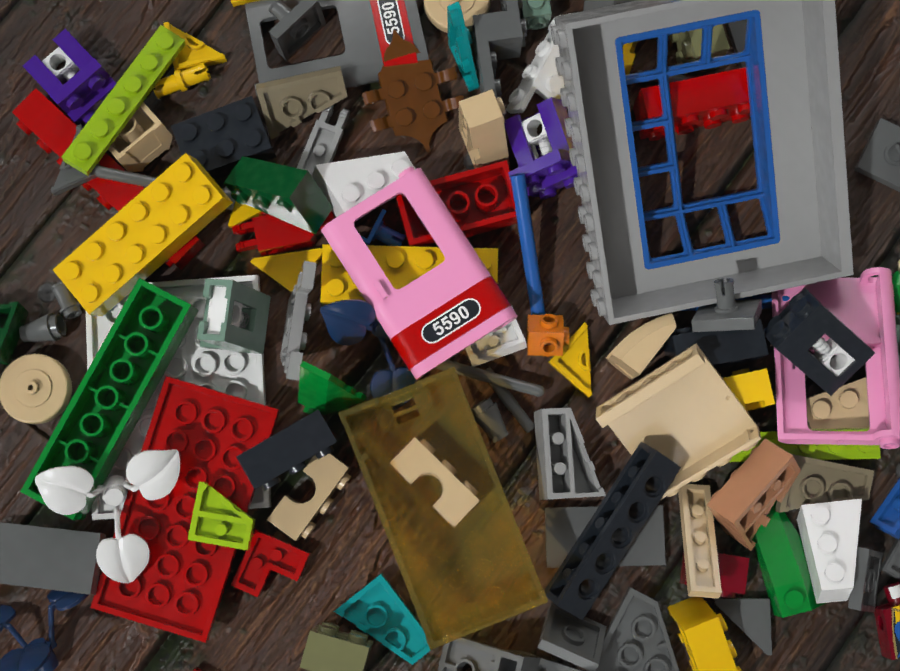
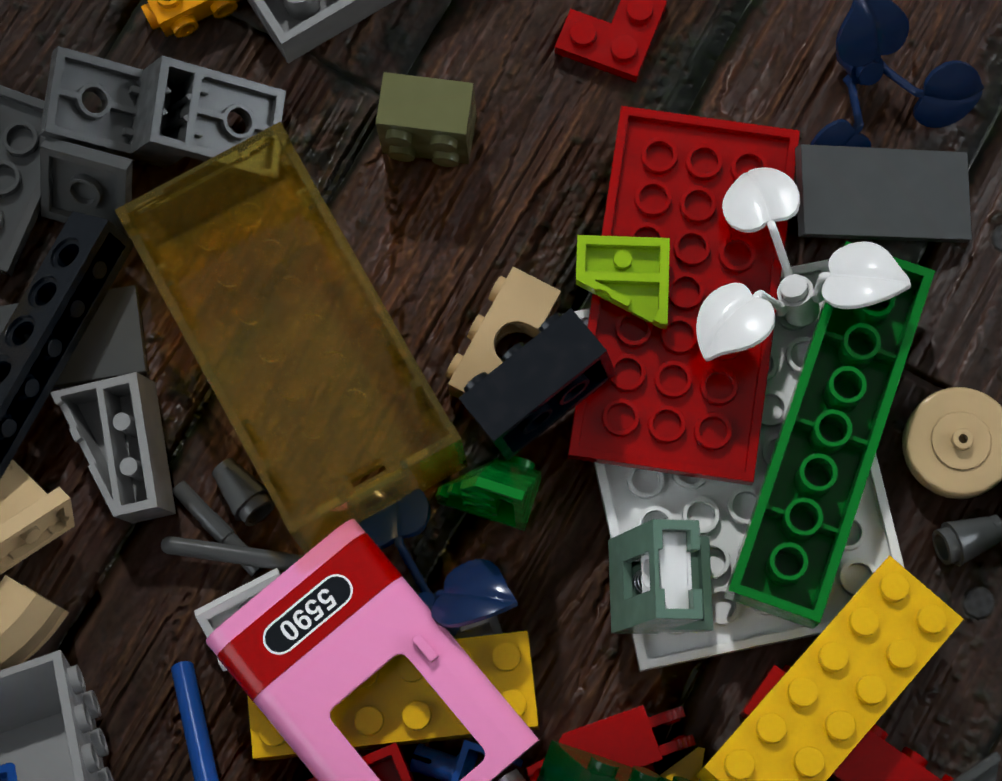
camera: 175 degrees right, 5 degrees down
(69, 306) = (938, 581): dark grey pin -> none
(265, 555) = (549, 247): red plate -> none
(287, 266) = (594, 691): yellow tile -> none
(297, 313) = (565, 574): light grey wing -> none
(386, 618) = (366, 184): teal wing -> none
(417, 461) = (278, 357): tan arch -> none
(546, 335) = (164, 632): orange brick -> none
(576, 361) = (119, 605): yellow tile -> none

